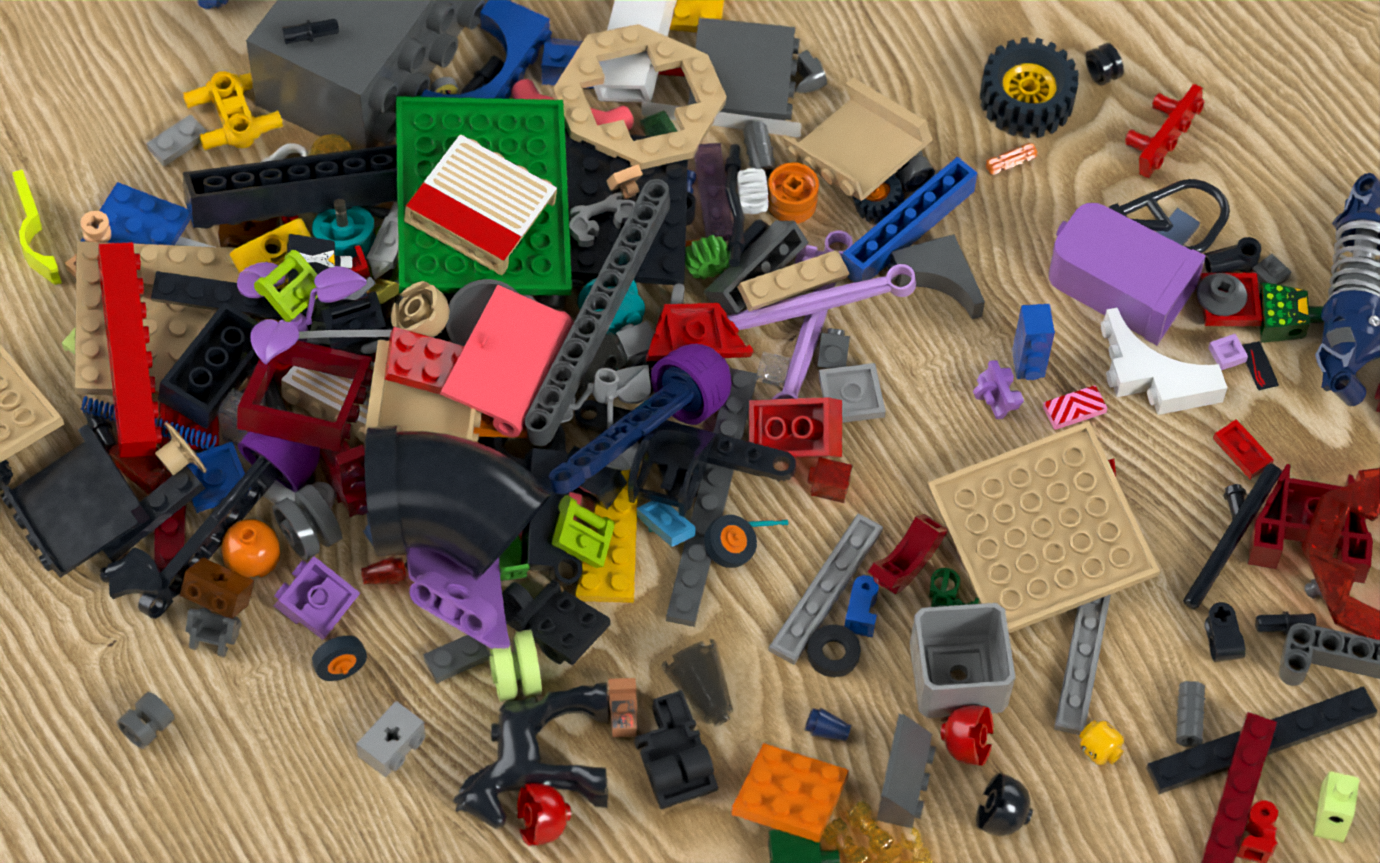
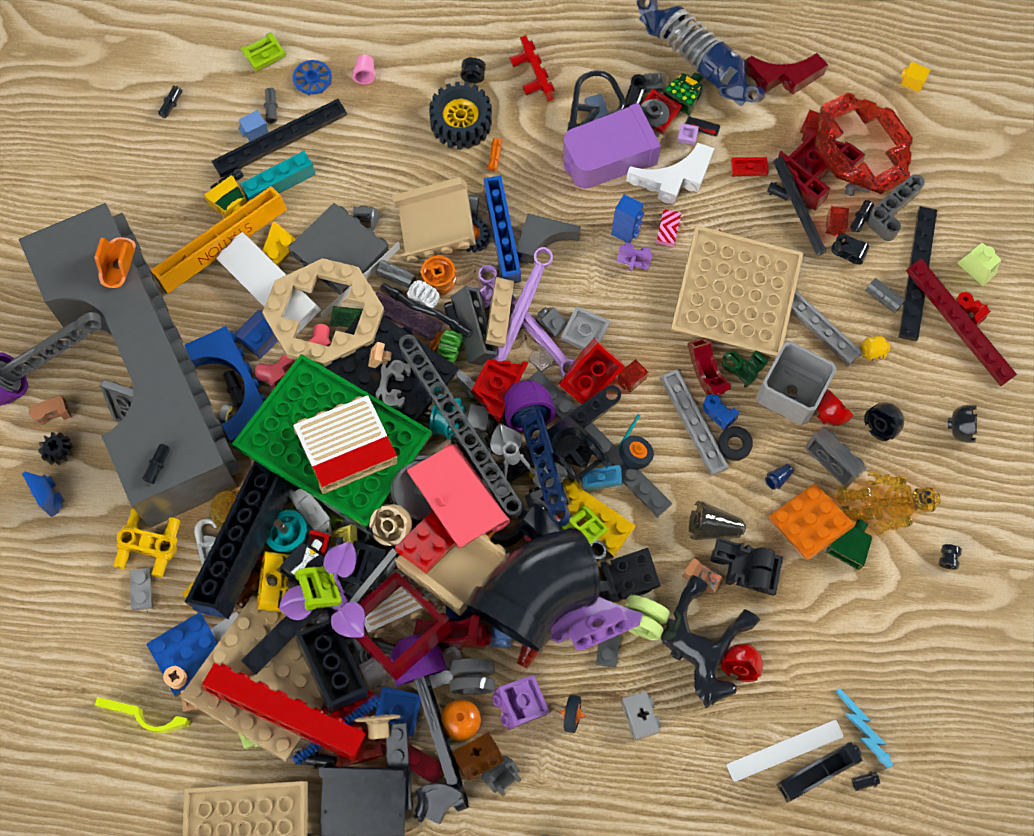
camera: 55 degrees left, 10 degrees up
(1251, 595) = (837, 220): none -> clear red brick

